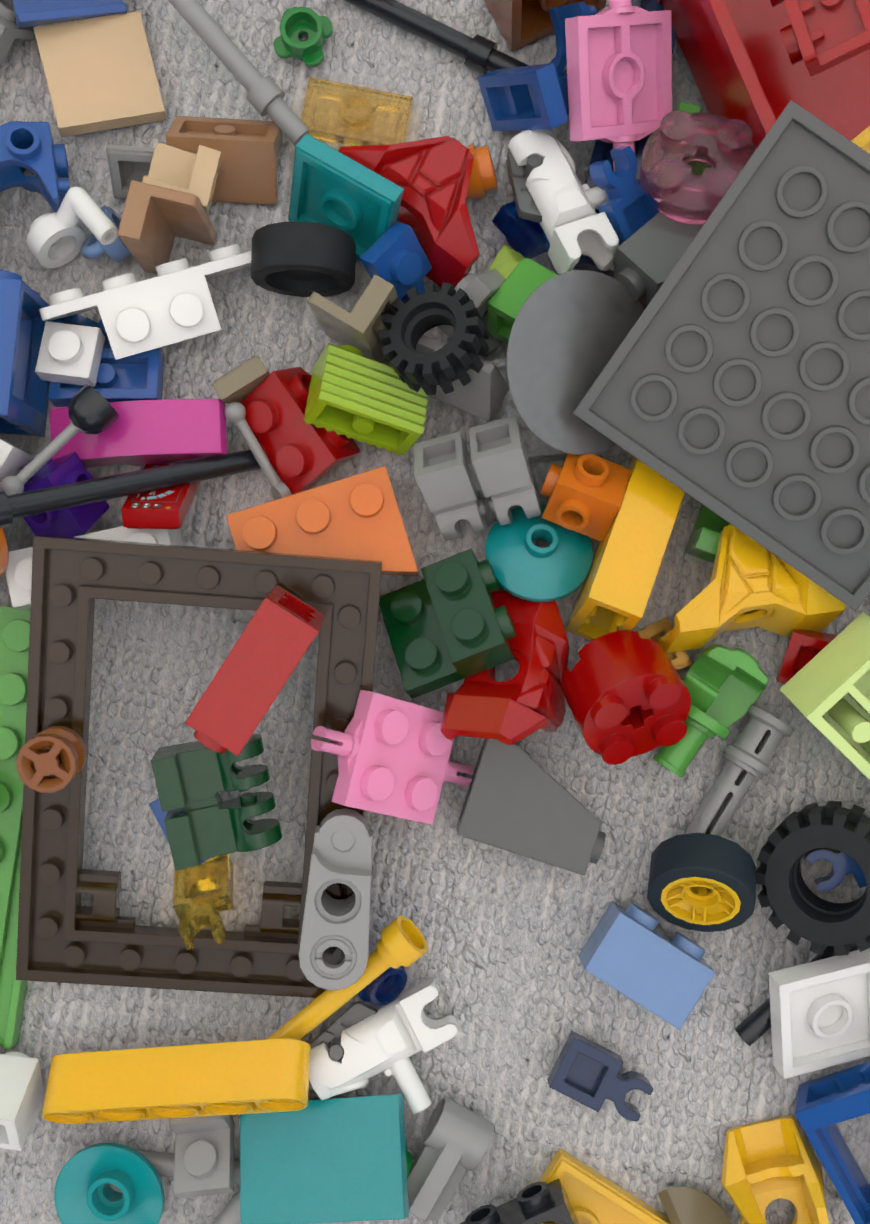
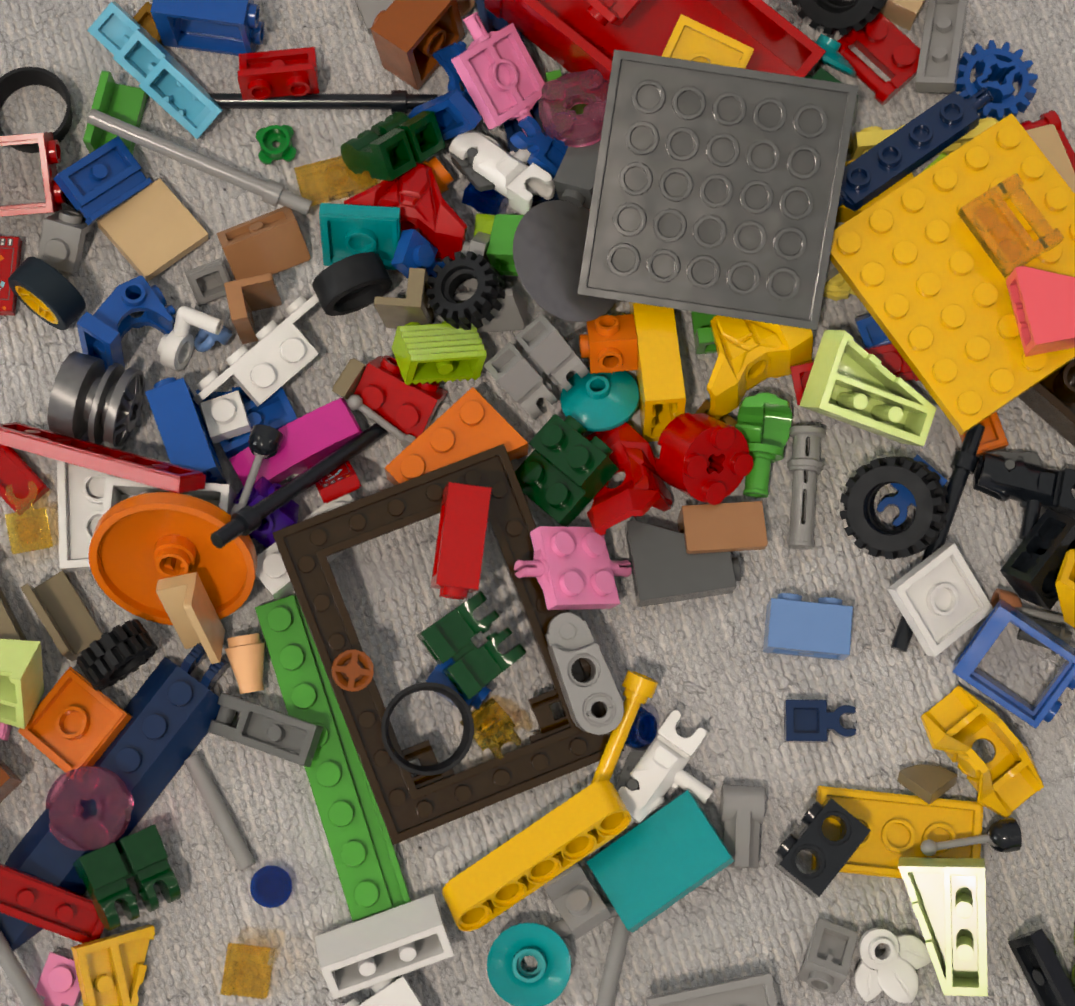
camera: 30 degrees left, 10 degrees down
(77, 910) = (457, 756): none -> black tyre
(186, 171) = (248, 263): tan panel -> none
(442, 105) = (393, 145): none -> dark green legs
(606, 795) = (723, 527): none -> medium nougat panel
(702, 882) = (830, 550): black wheel -> none

